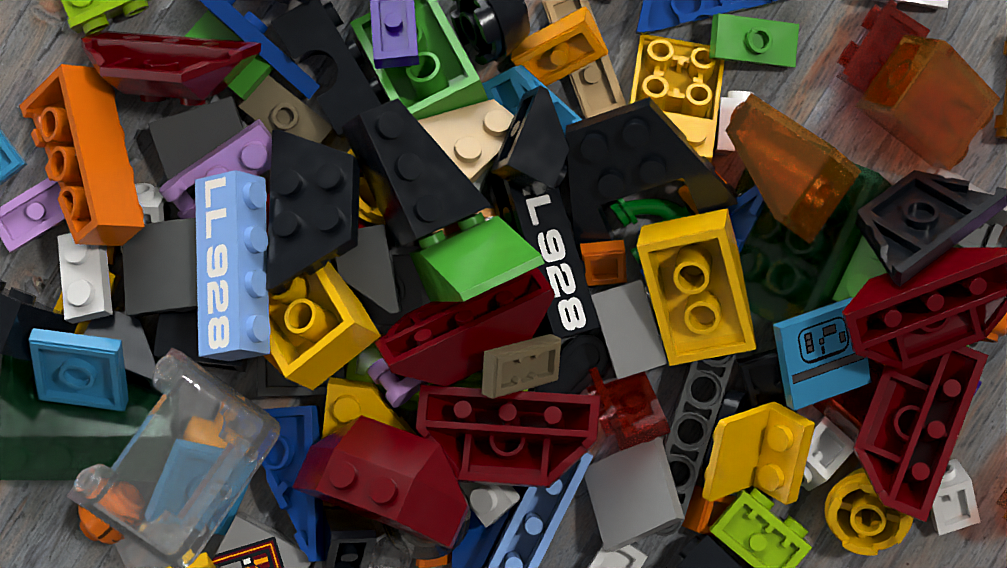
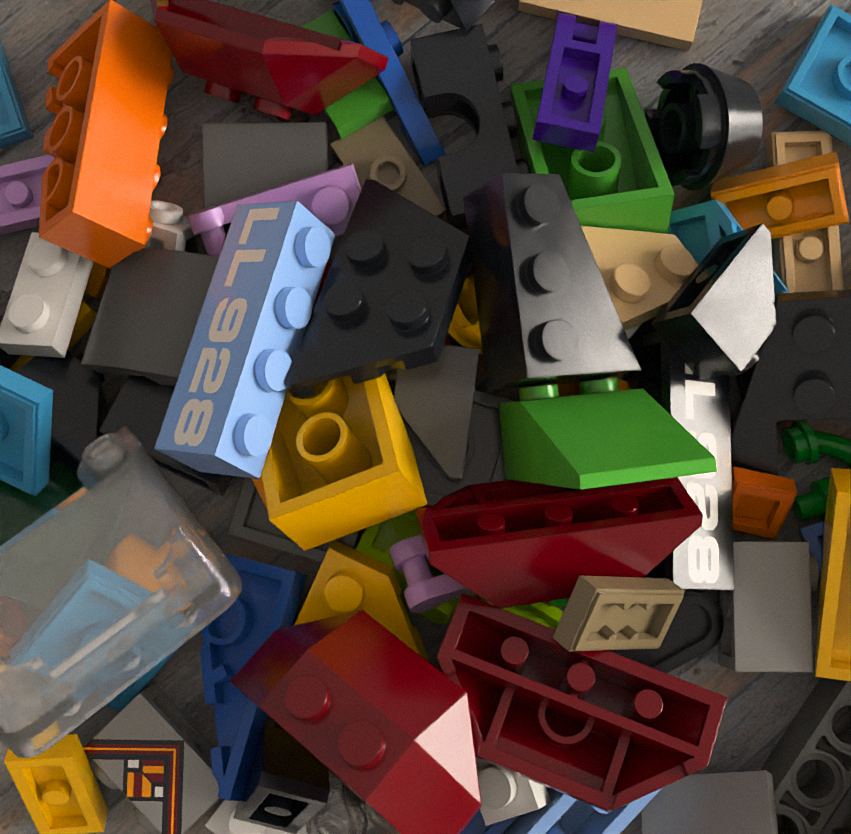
camera: 15 degrees right, 5 degrees down
(629, 409) = (754, 731): clear red bracket -> none

